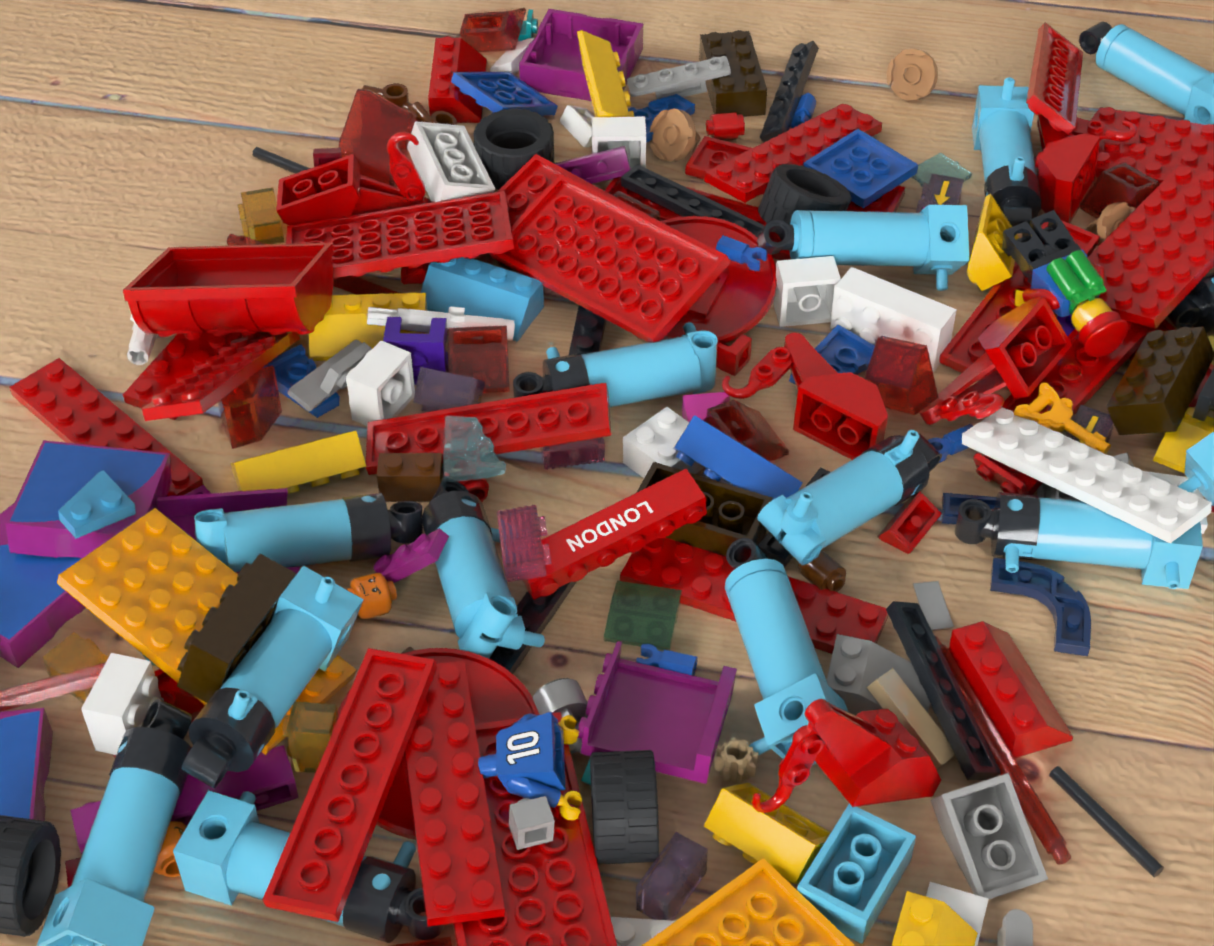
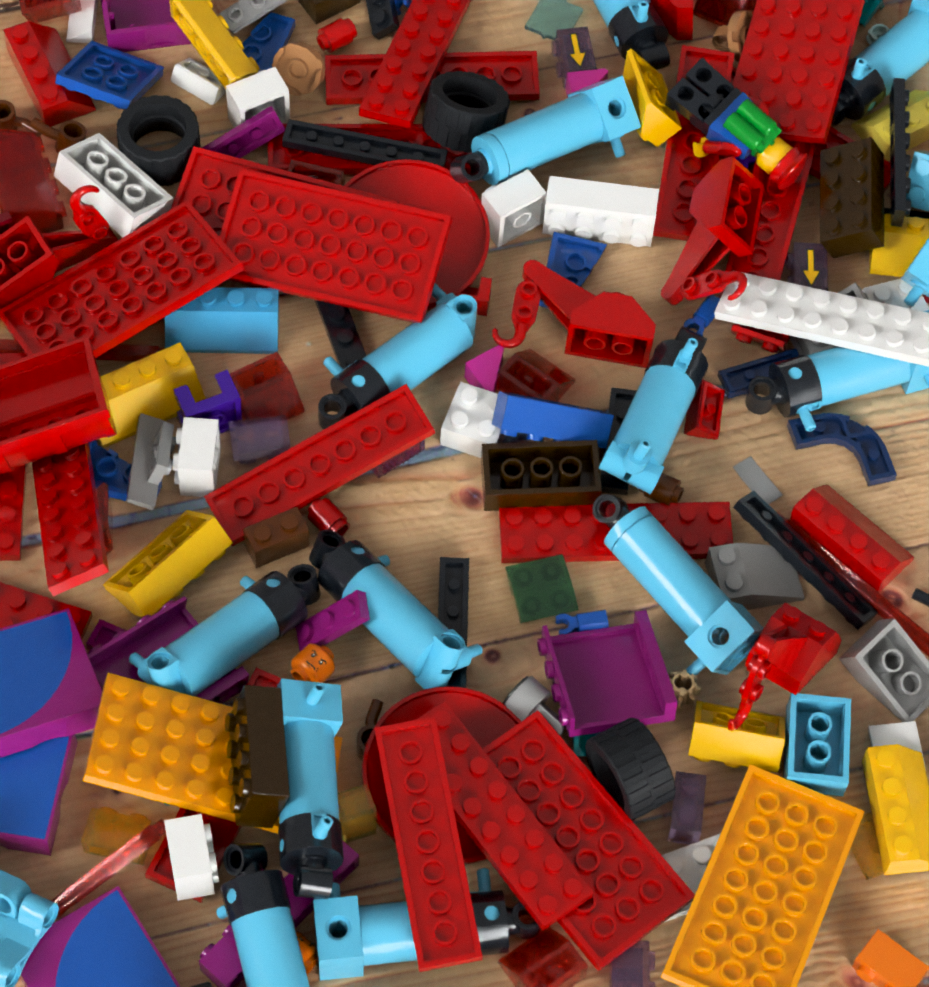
camera: 30 degrees left, 15 degrees up
(96, 506) = (53, 691): dark azure wing -> none
(421, 320) = (205, 371): white piece -> none
(468, 451) = (320, 497): clear light blue slope -> none
(522, 543) = (431, 574): clear pink brick -> none
(531, 822) = (574, 815): light grey plate -> none
(532, 760) = (550, 764): blue torso -> none
(619, 530) = (488, 531): red brick -> none
(741, 252) = (442, 192): blue bar -> none
(863, 166) = (490, 45): blue plate -> none
(895, 695) = (787, 589): tan slope -> none
(902, 375) = (639, 271): clear red slope -> none
(1059, 417) = (785, 265): light orange piece -> none

